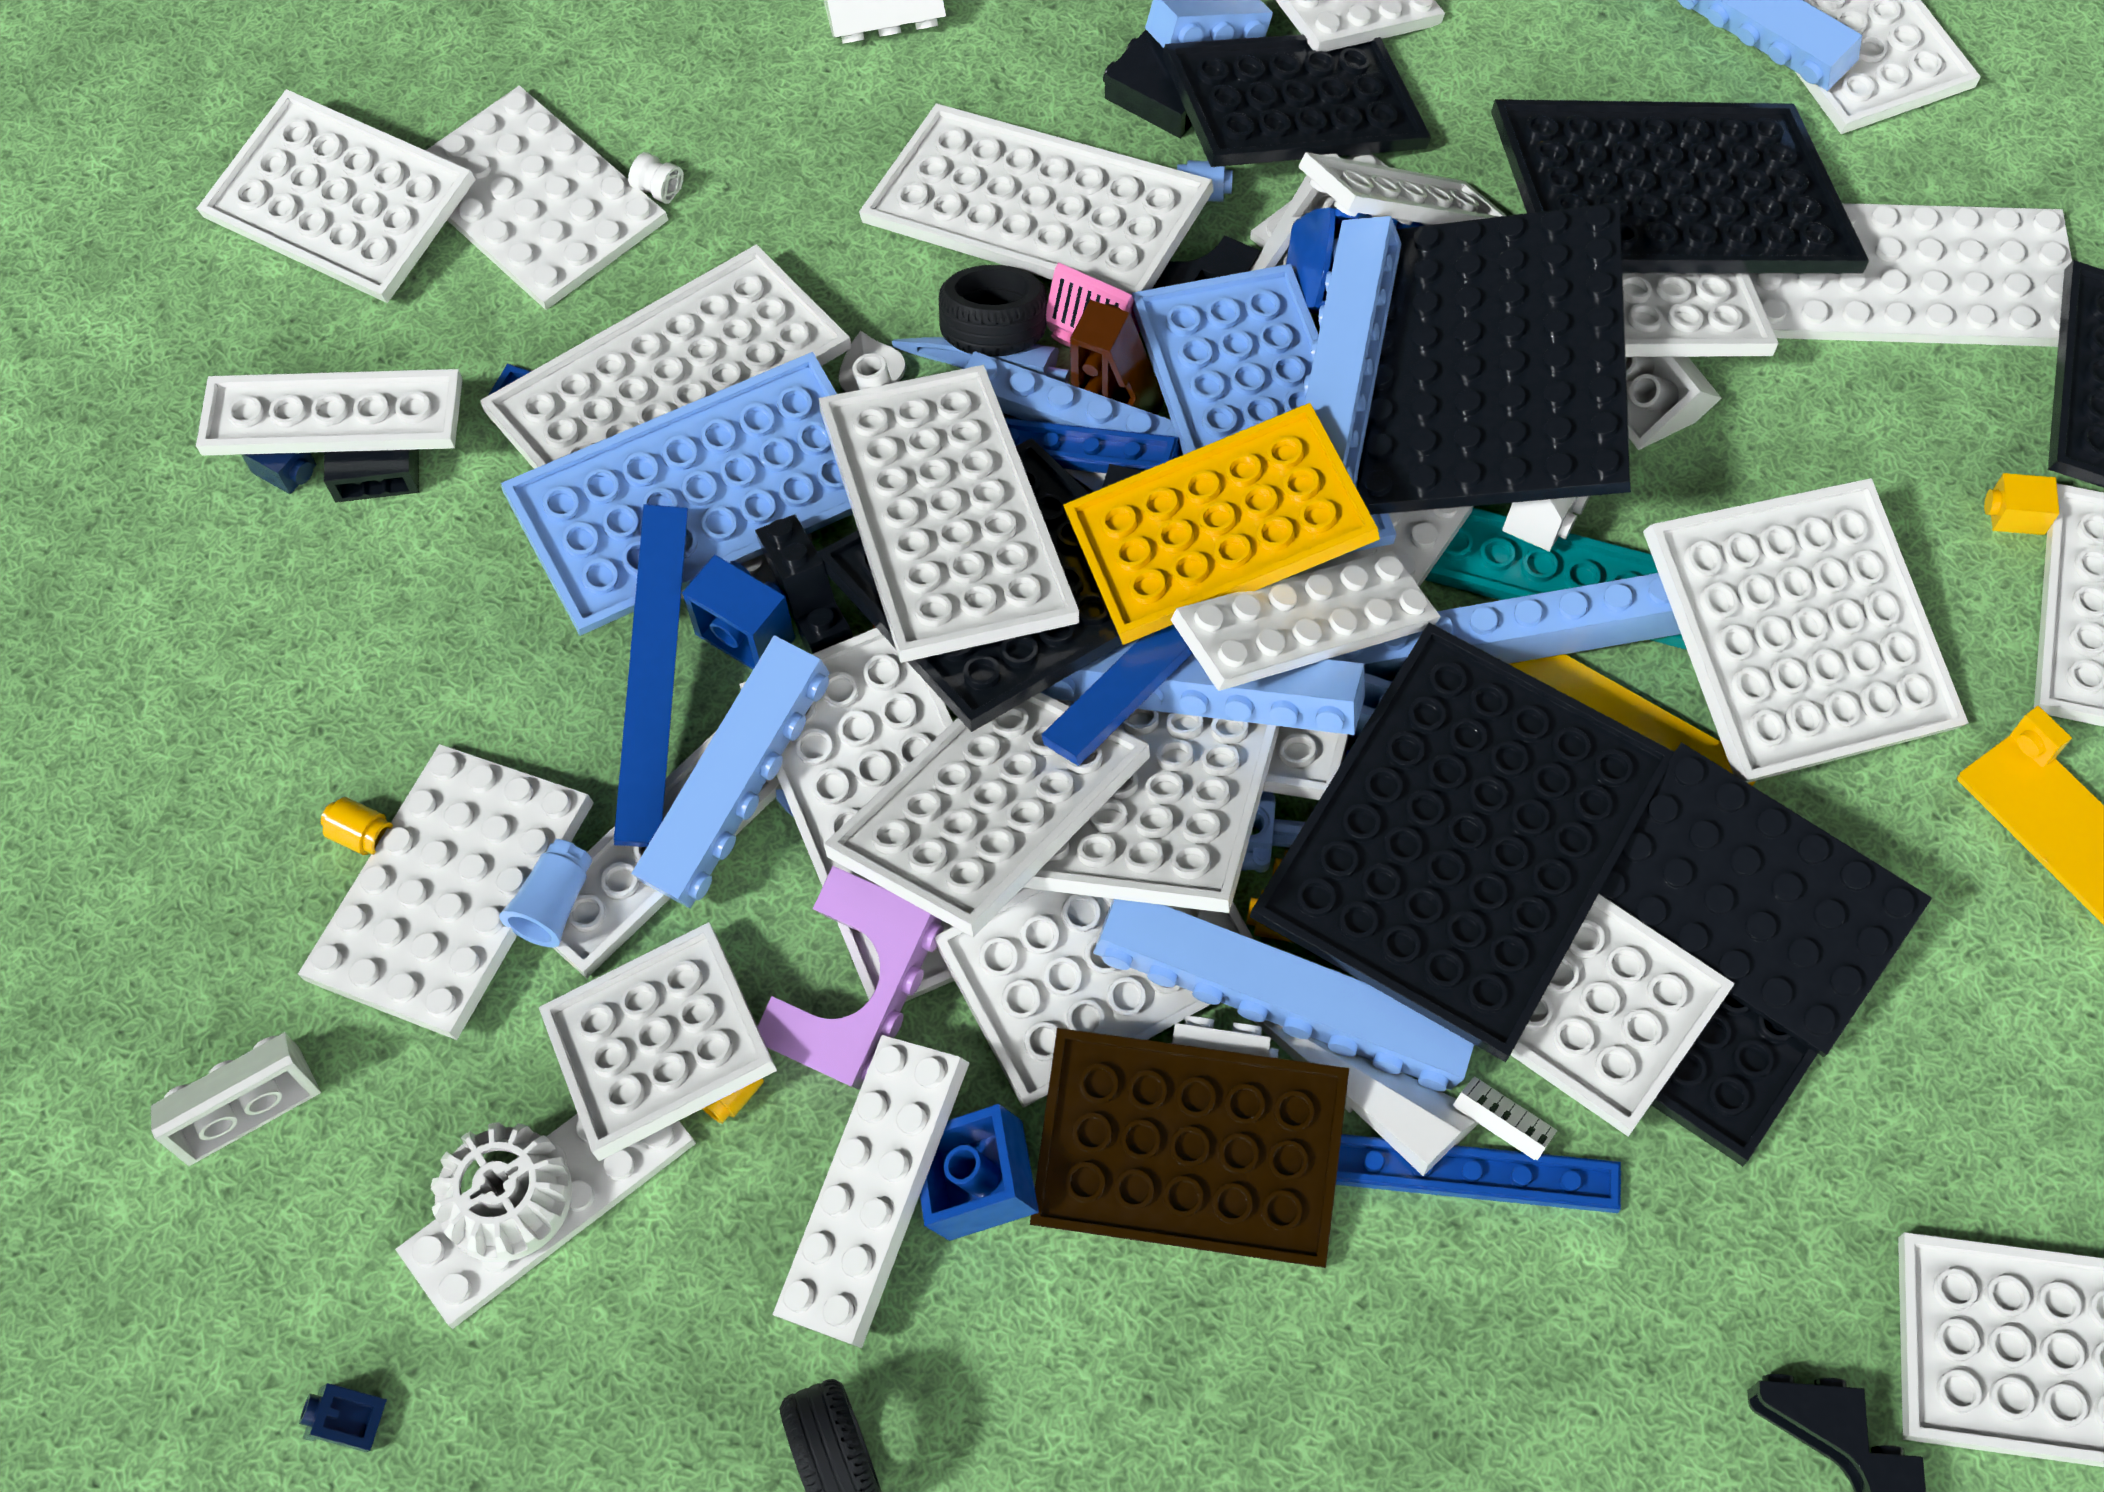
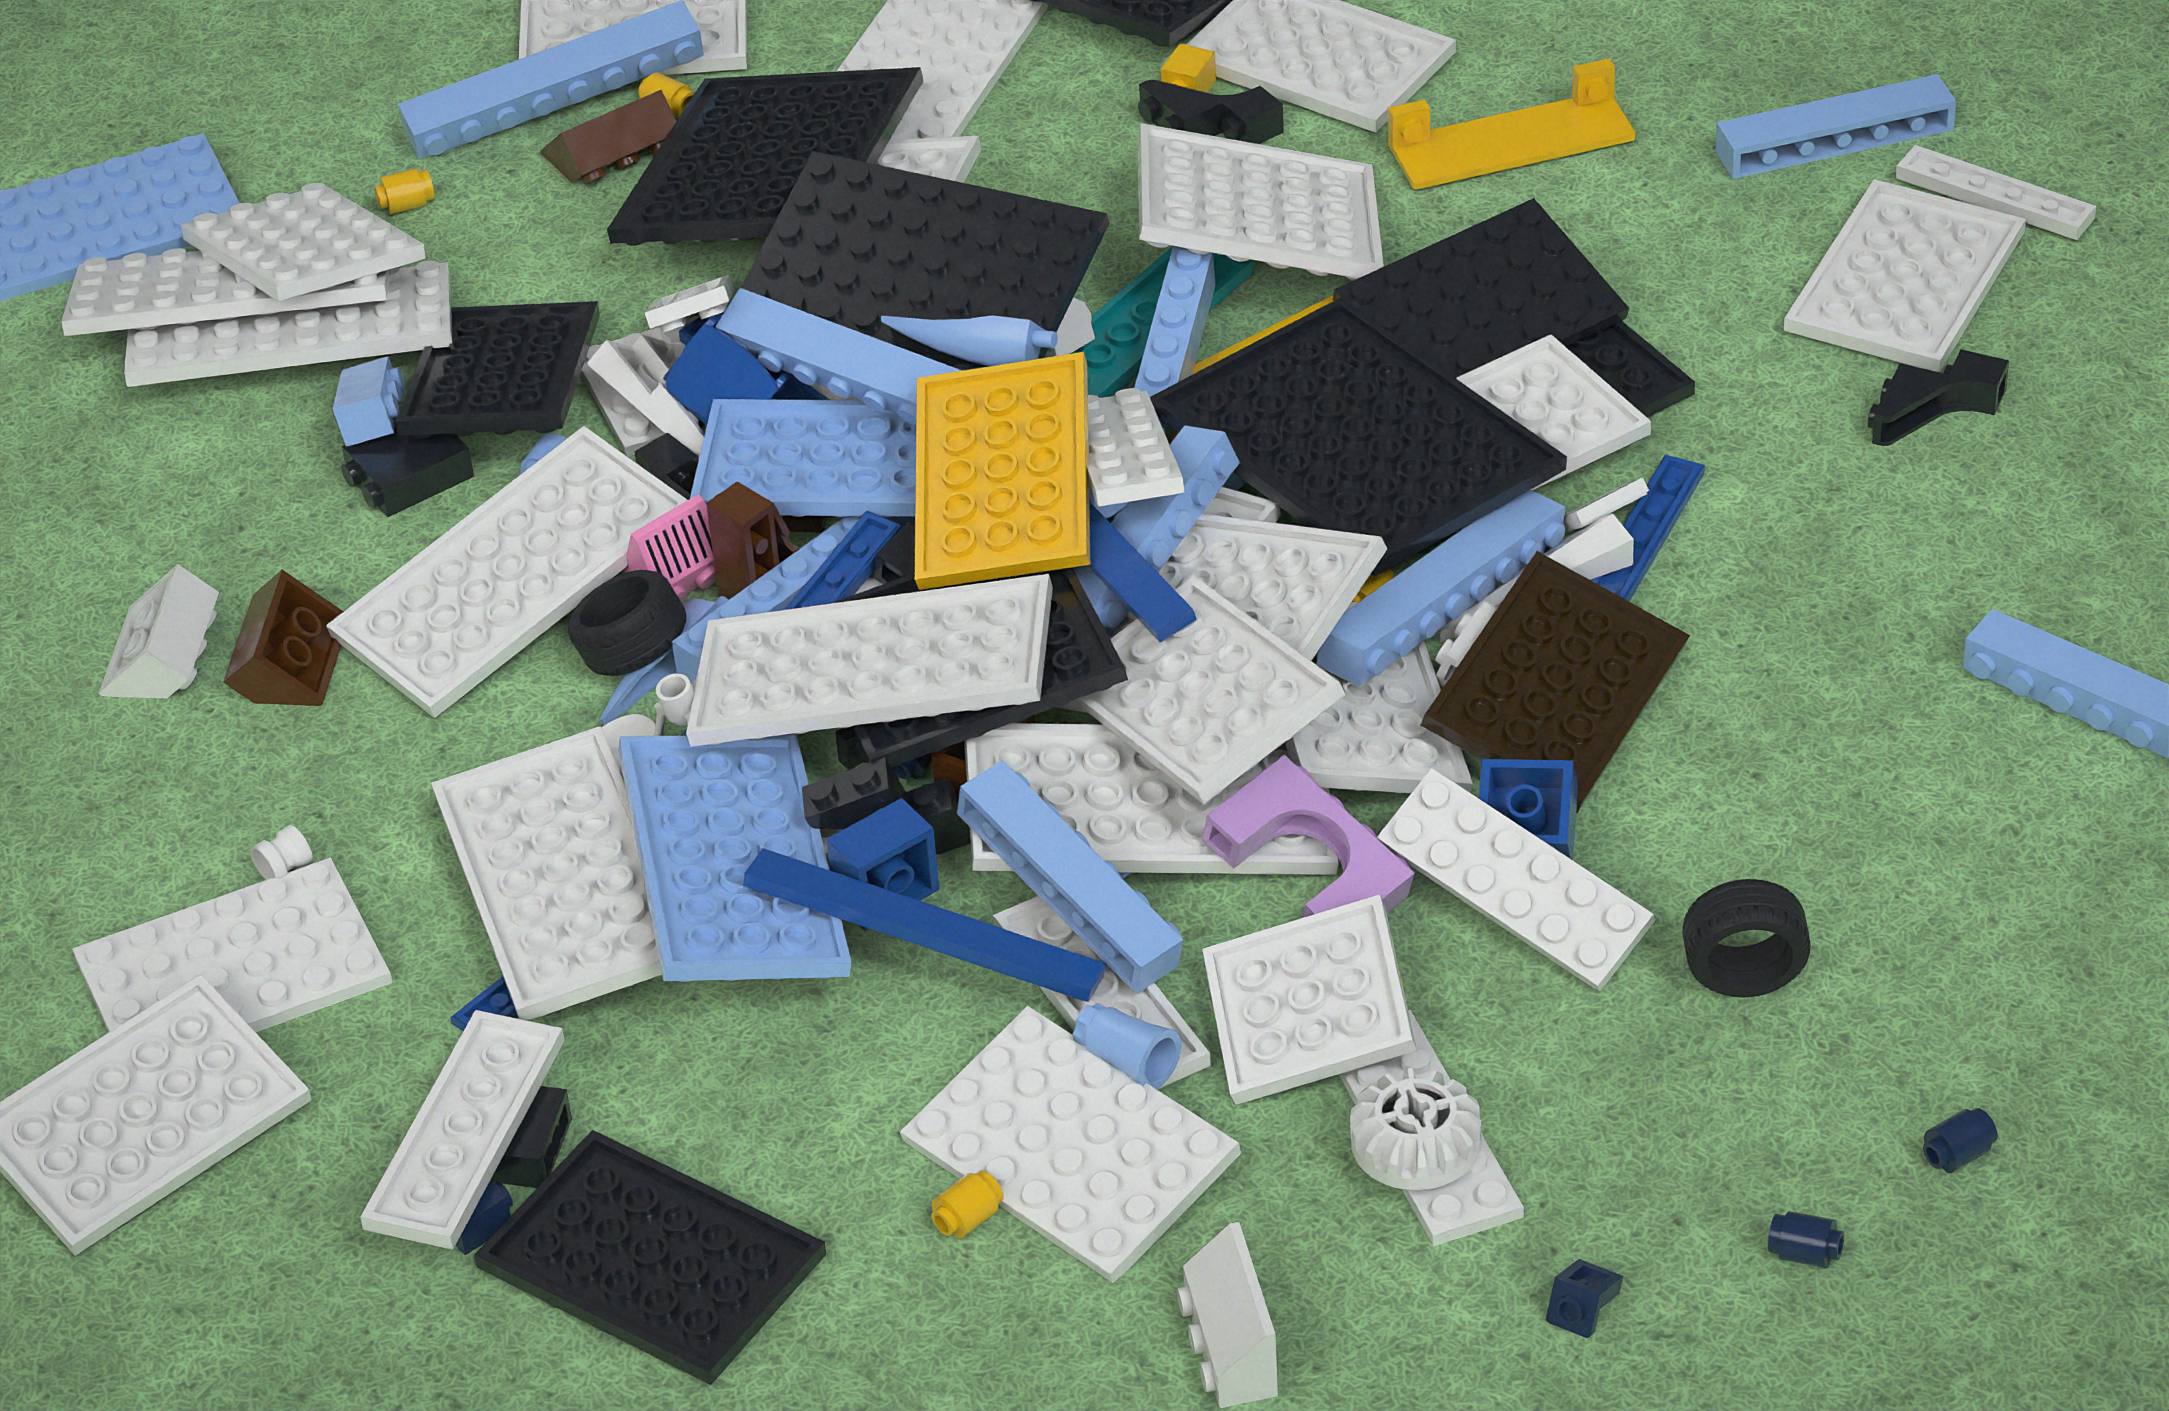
camera: 70 degrees left, 20 degrees down
(258, 606) = (651, 1256): none -> black plate
(901, 86) = (285, 645): none -> reddish brown slope
(1415, 453) = (978, 340): none -> light blue piece
(1666, 66) = (611, 139): none -> reddish brown slope
(1757, 81) = (675, 92): none -> yellow brick
(1958, 532) = (1243, 116): none -> black arch

